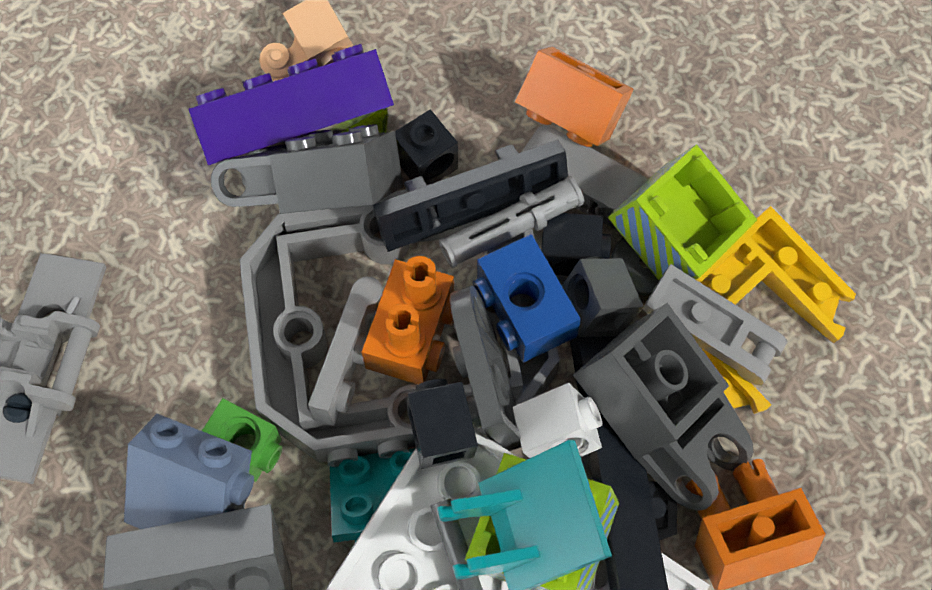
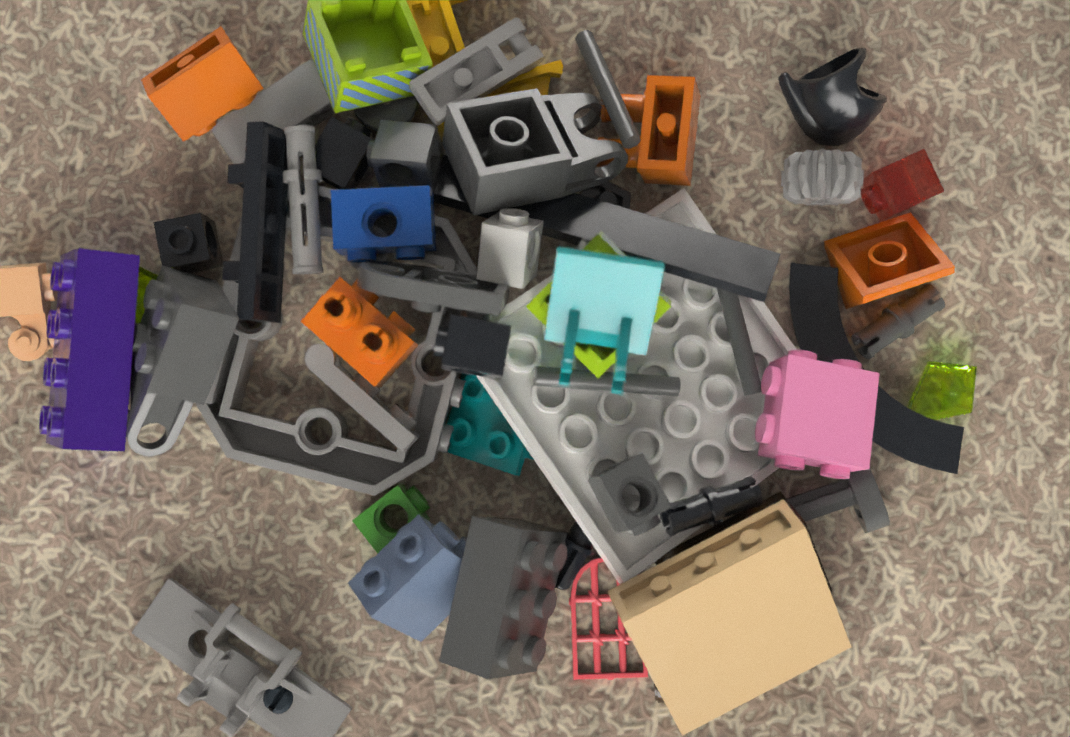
camera: 70 degrees left, 20 degrees up
(765, 460) = (607, 89): none -> dark grey bar

